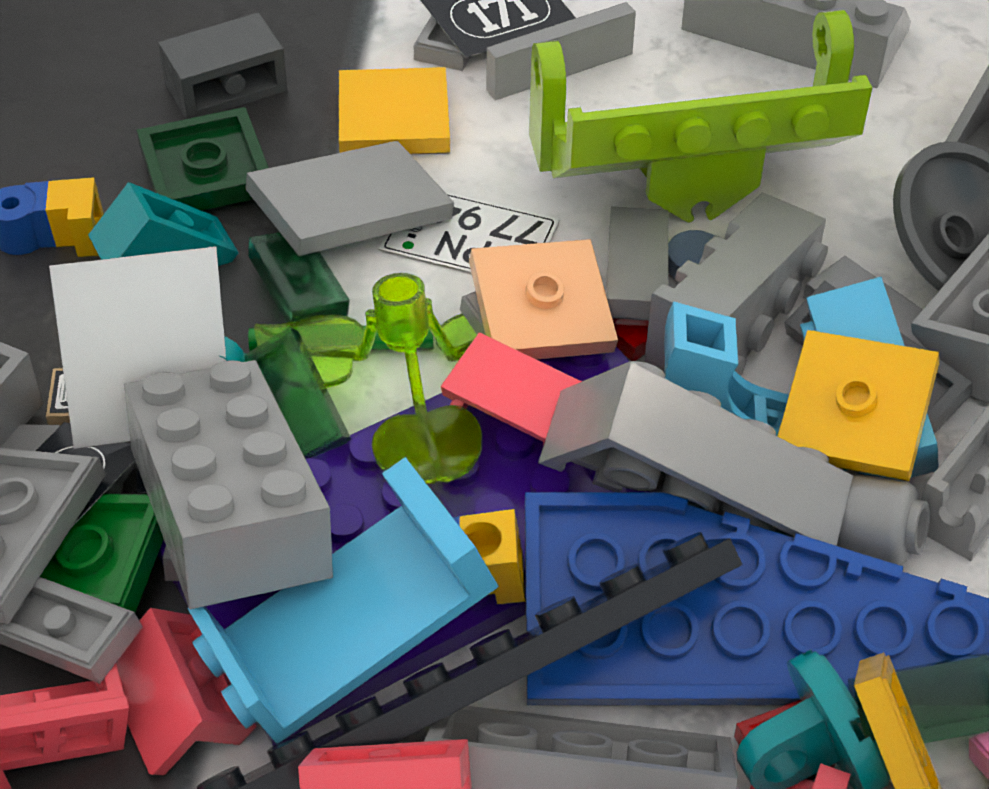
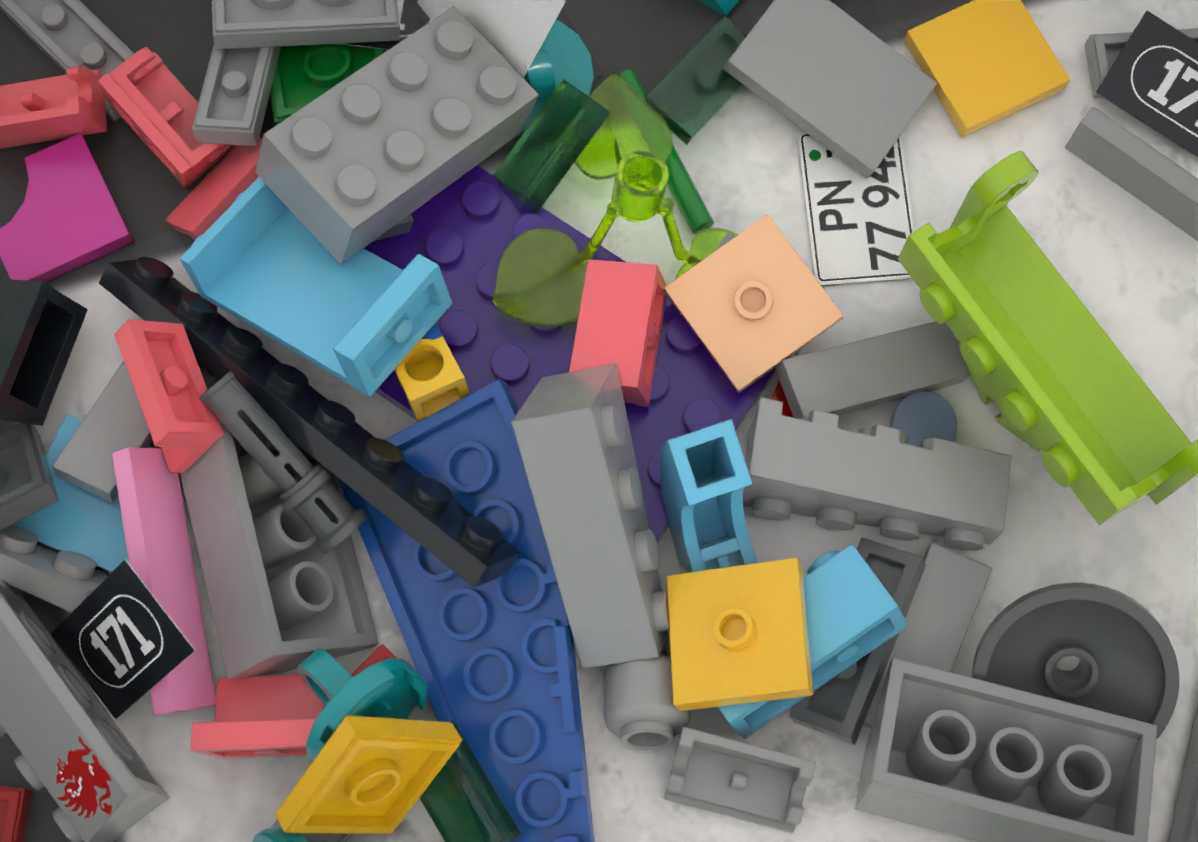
camera: 65 degrees right, 25 degrees up
(549, 703) = (225, 401): none -> dark grey pin

